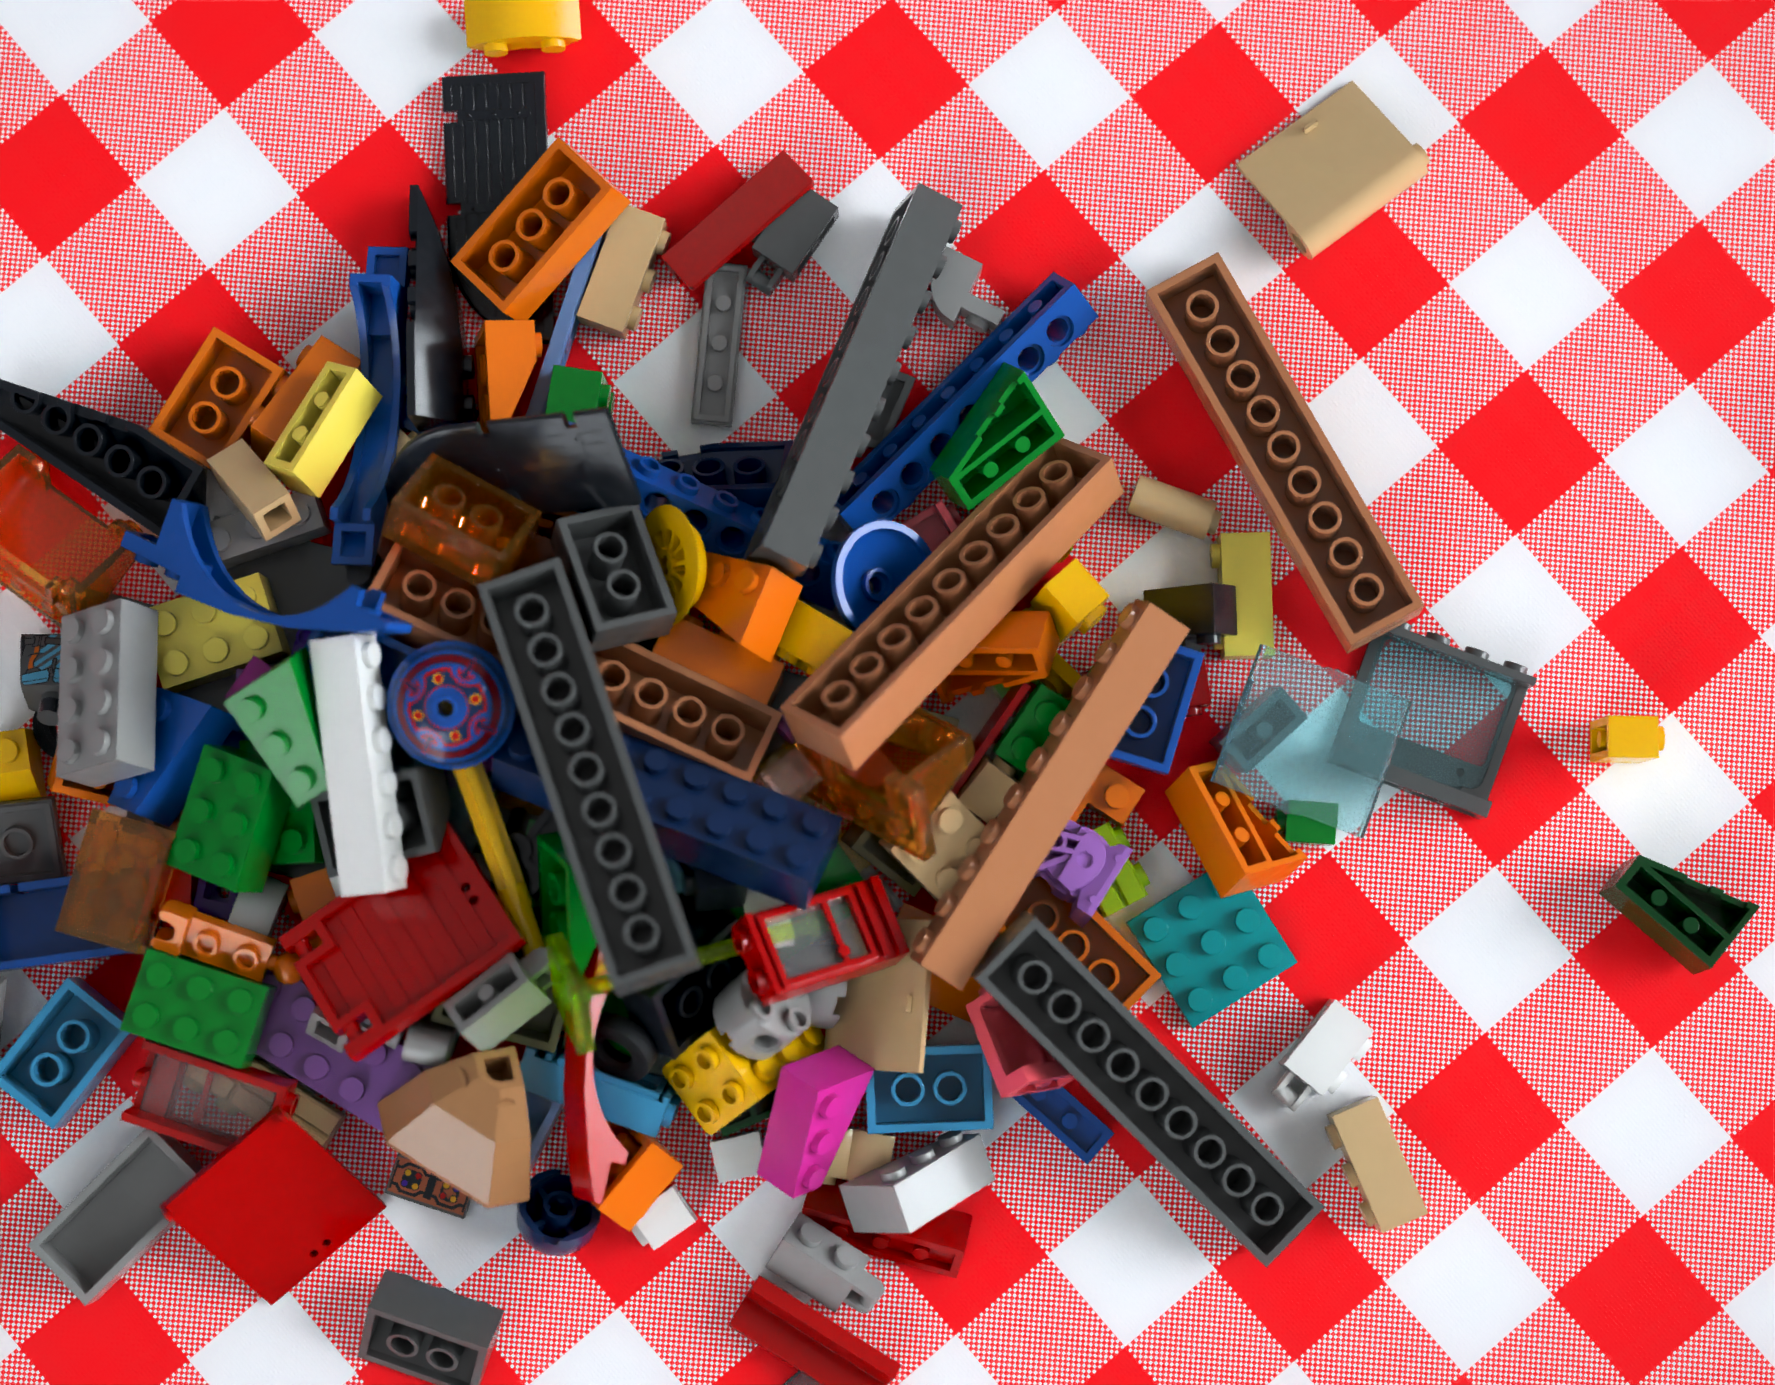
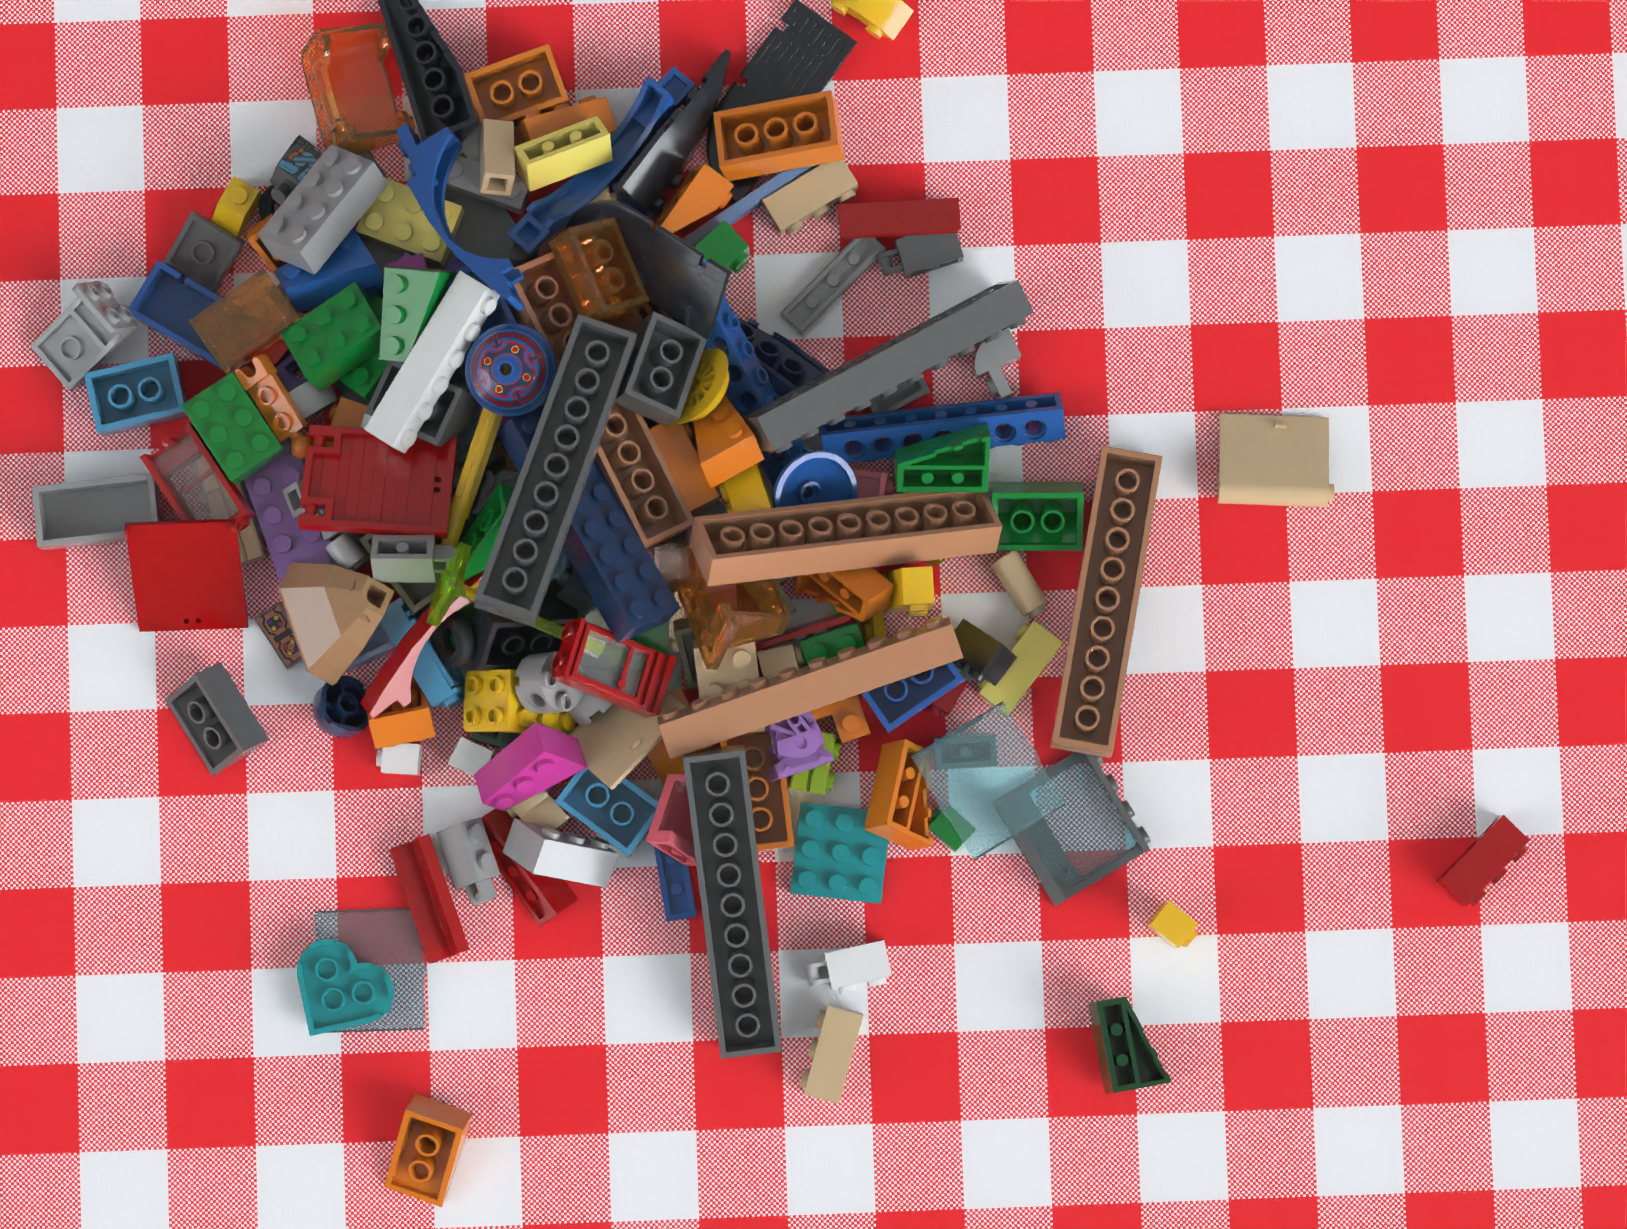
camera: 40 degrees right, 0 degrees up
(1137, 416) = (1039, 515): none -> green slope

